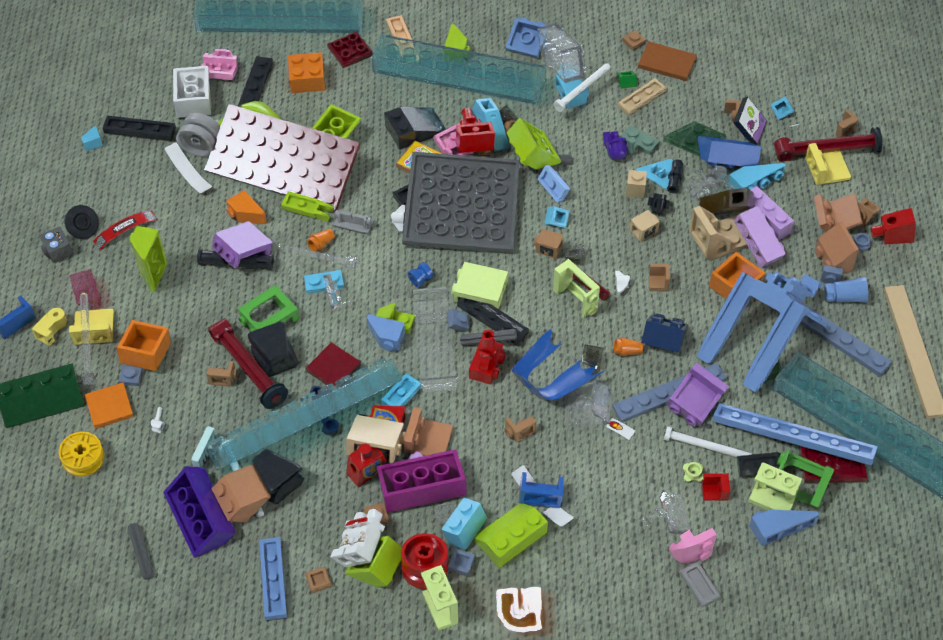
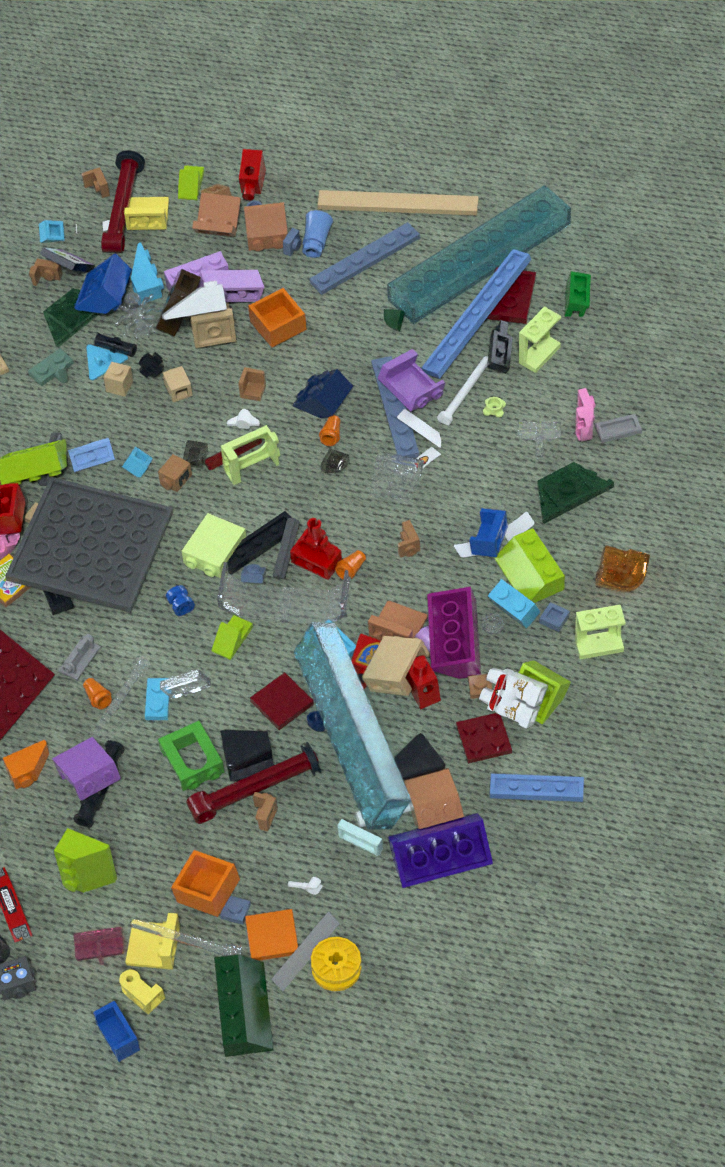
camera: 75 degrees left, 0 degrees up
(104, 435) = (304, 951): none -> light grey sticker
(140, 551) = (474, 913): dark grey axle -> none
(306, 206) = (40, 702): lime hinge -> none
(318, 579) = (545, 748): medium nougat tile -> none
(321, 527) = (483, 737): none -> dark red plate
(386, 332) = (251, 643): medium blue slope -> none
(398, 218) = (89, 610): white piece -> none
(421, 554) = (551, 642): red wheel -> none
(484, 389) = (351, 563): none -> orange cone
(563, 384) = (361, 489): blue piece -> none
(611, 551) = (568, 489): none -> clear green wing
(615, 146) = (58, 386): dark purple piece -> none
(651, 415) = (420, 426): none -> white sticker
(716, 486) = (518, 390): red panel -> none
(719, 214) = (202, 300): none -> white slope
(776, 524) = (570, 354): medium blue slope -> none
(779, 293) = (333, 275): medium blue piece -> none
(825, 473) = (533, 299): bright green panel -> none
(852, 517) = (577, 293): none -> green hinge
(874, 189) = (190, 182): none -> lime slope

